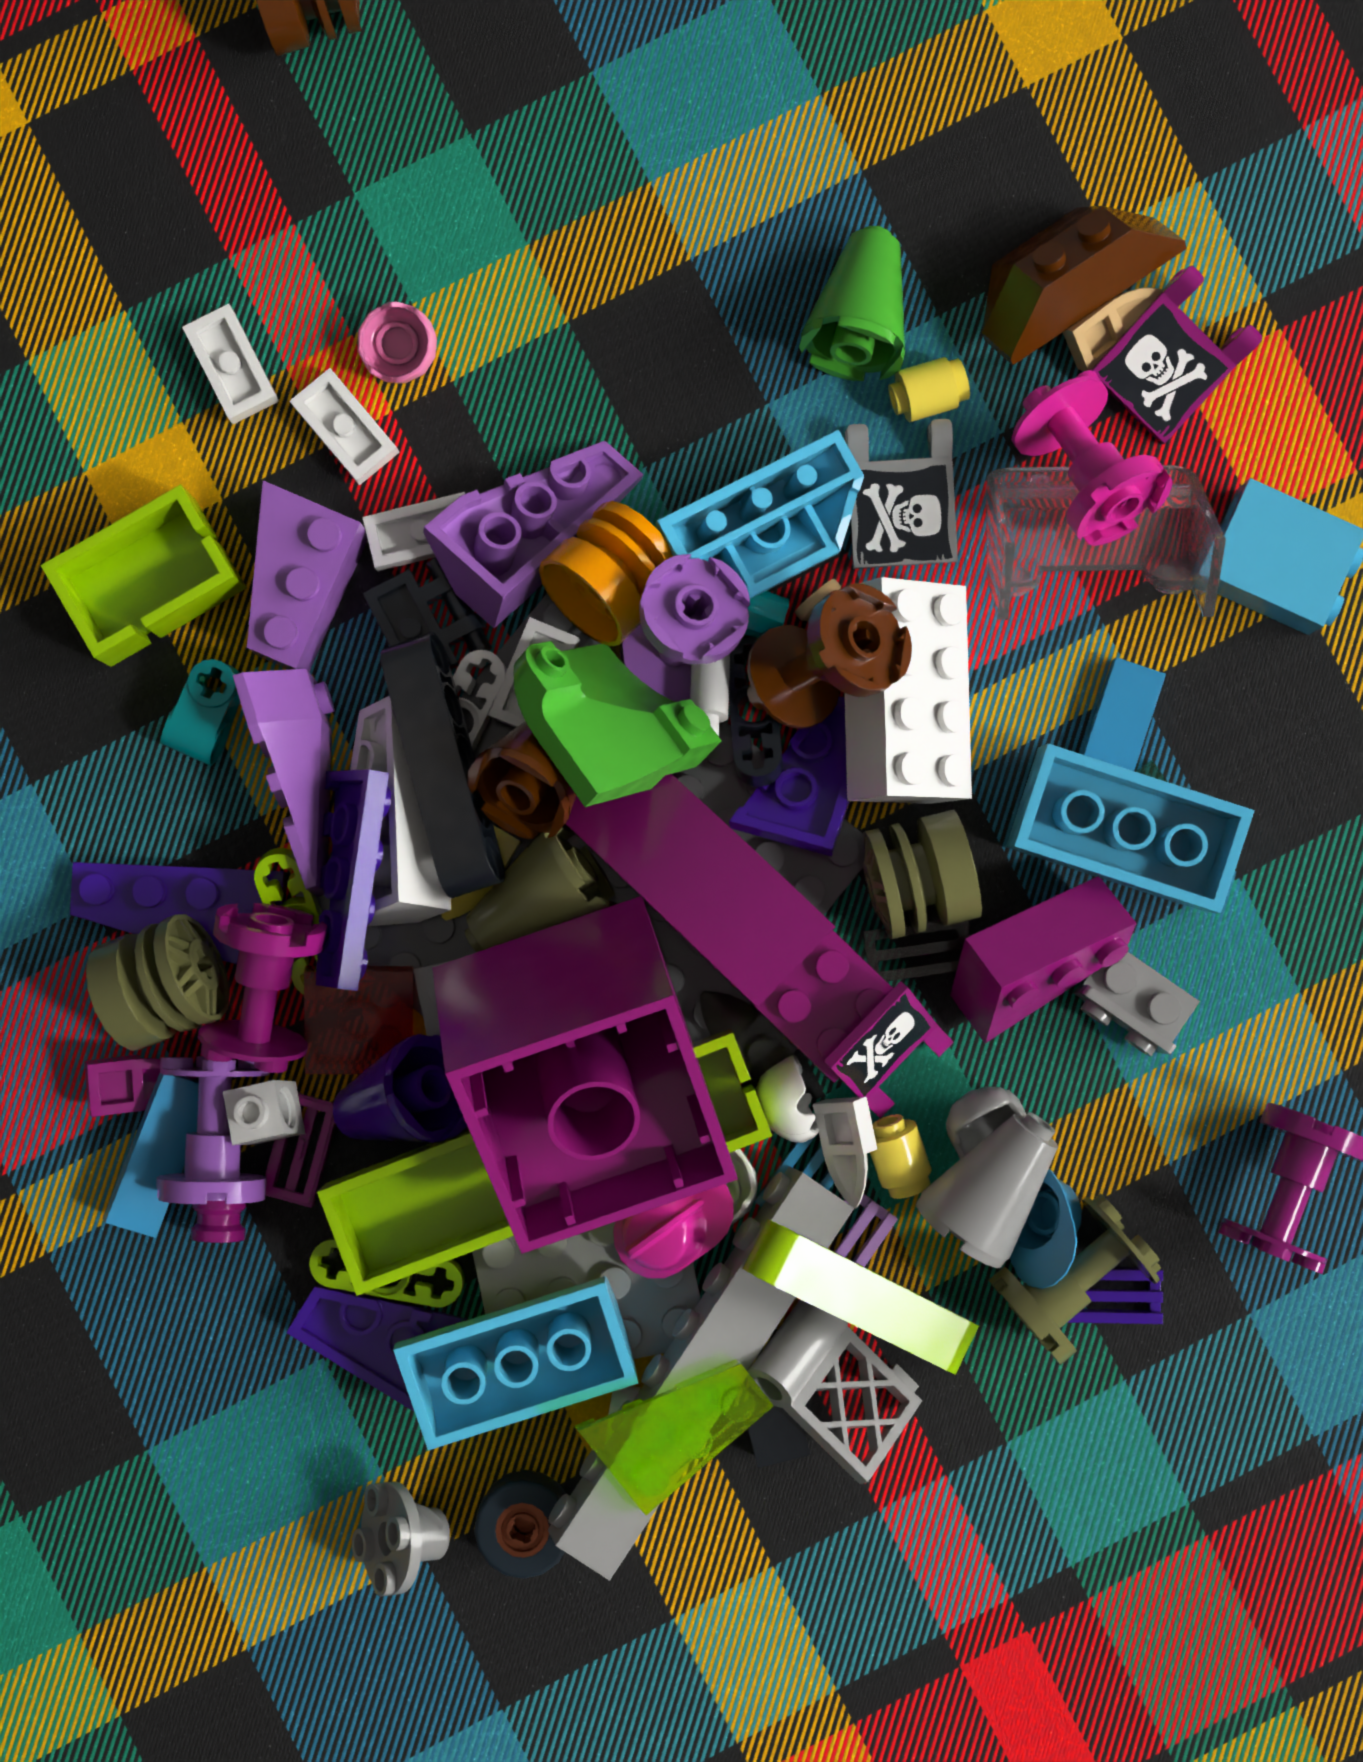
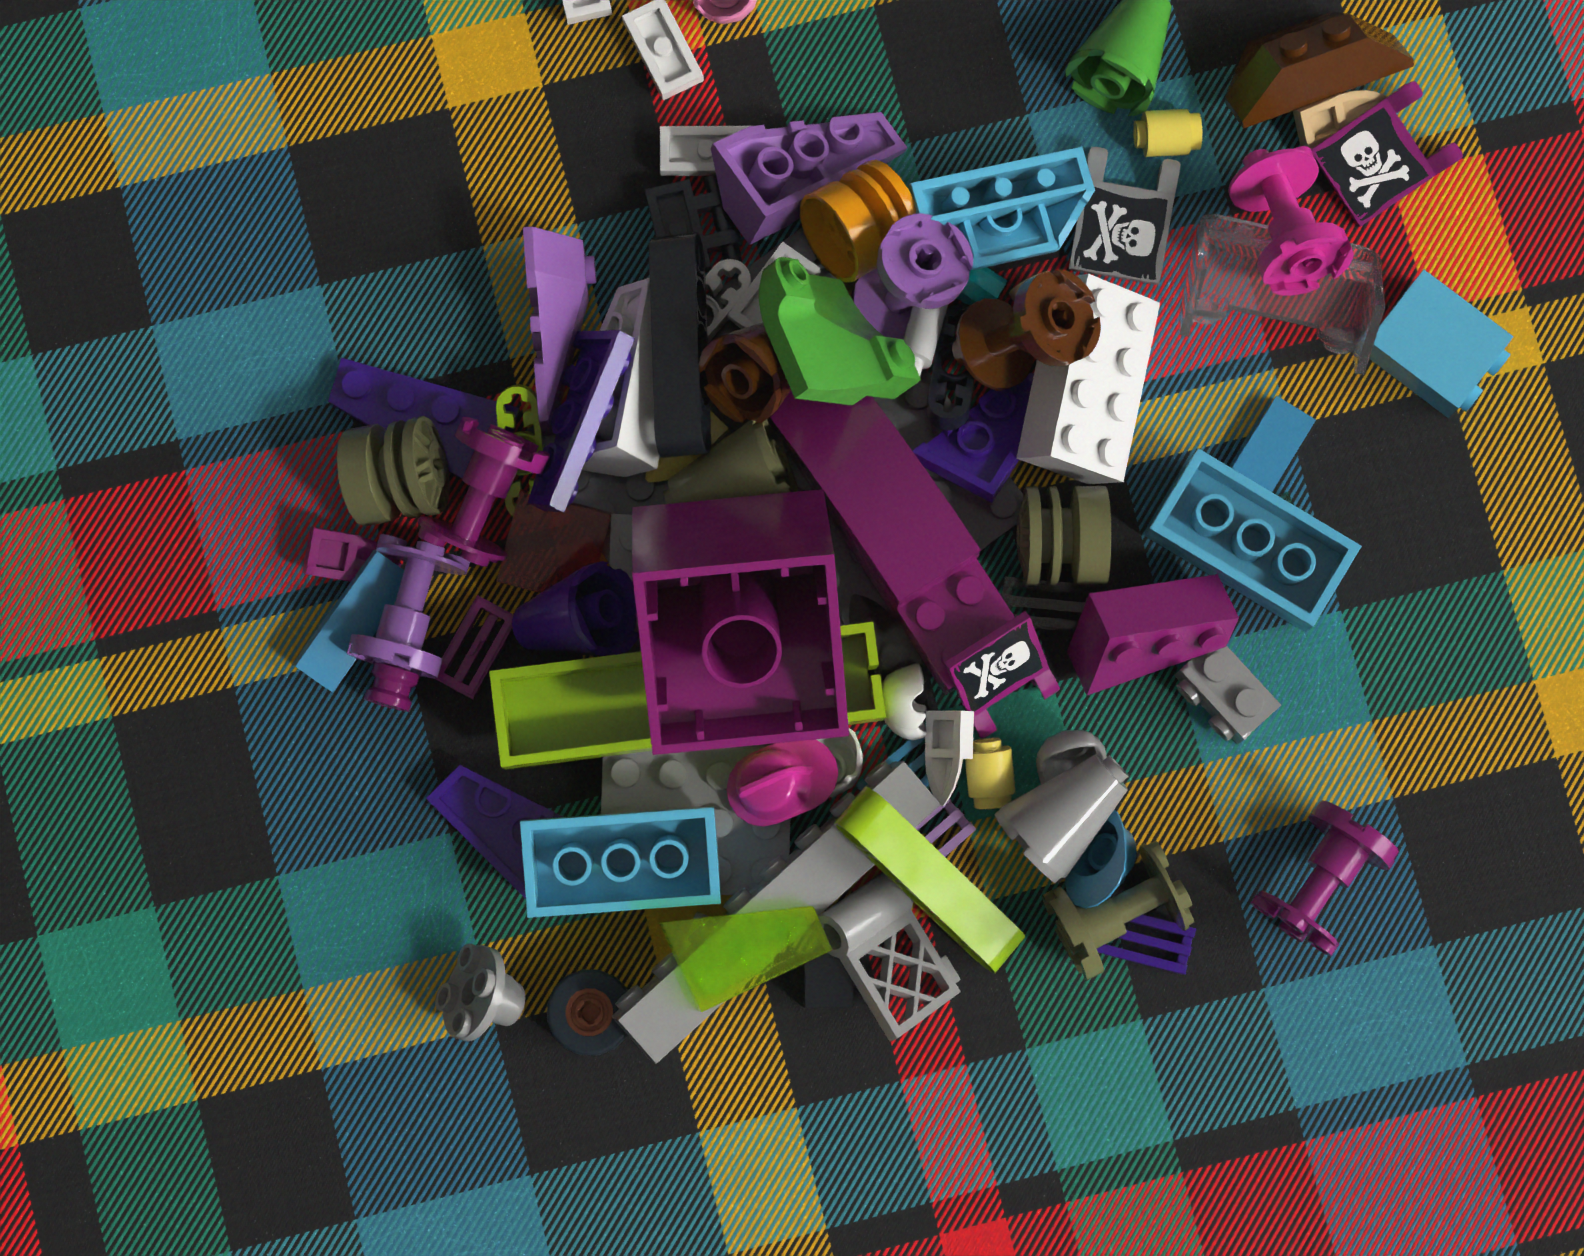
camera: 10 degrees right, 5 degrees down
(143, 576) = (464, 131): lime piece -> none
(201, 716) = (479, 263): teal piece -> none
(263, 1112) = (454, 604): white brick -> none
(299, 576) = (595, 162): medium lavender wedge -> none
(423, 1290) = (551, 794): lime beam -> none

